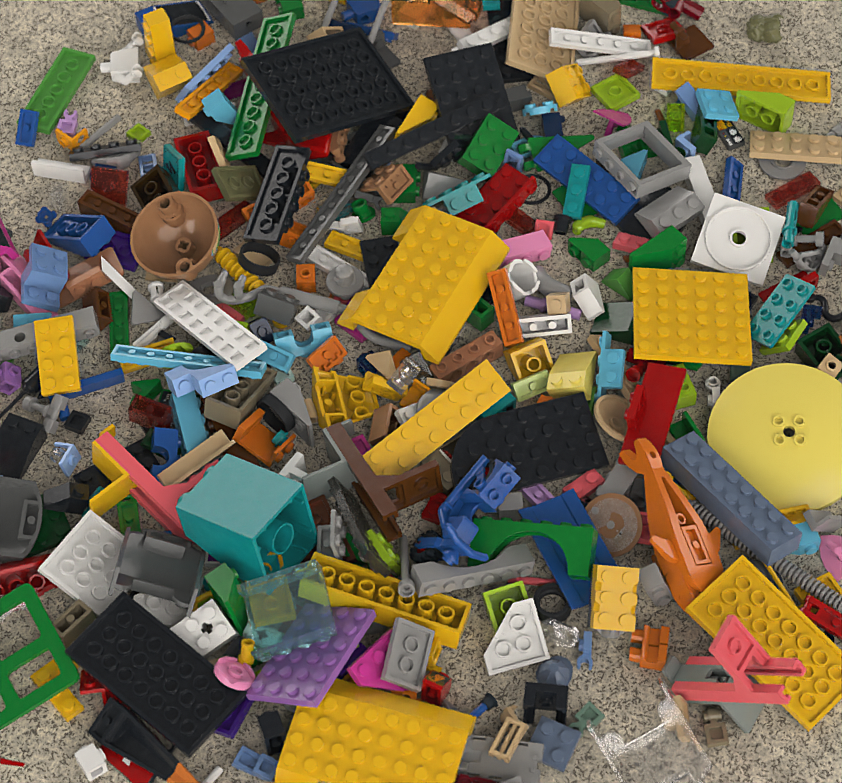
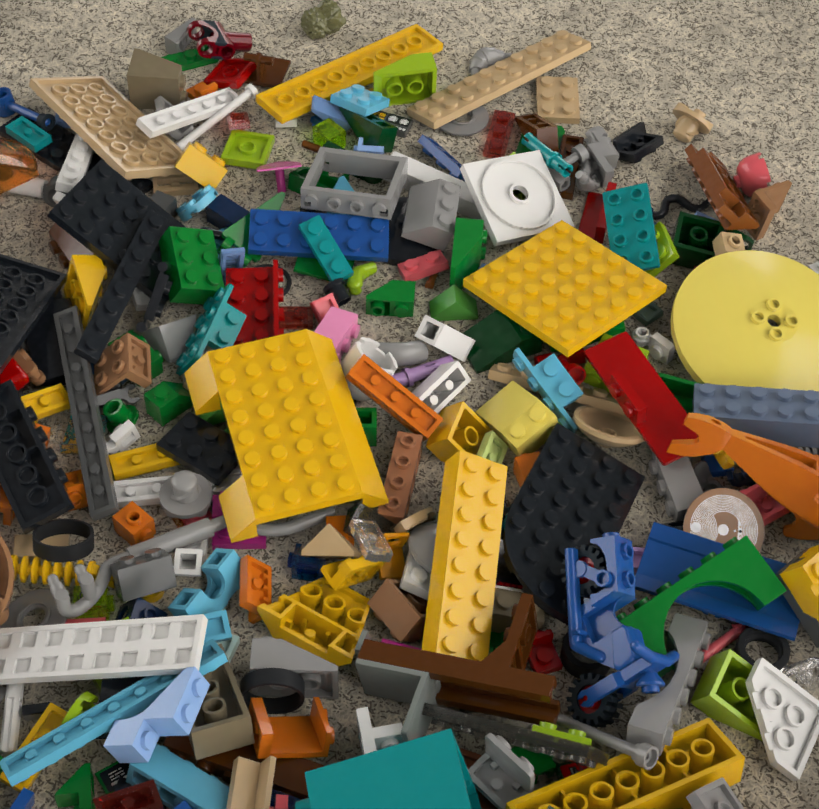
camera: 50 degrees left, 5 degrees down
(280, 438) = (304, 715): teal plate -> none
(558, 303) = (431, 360): tan brick -> none
(585, 484) = (646, 511): coral plate -> none

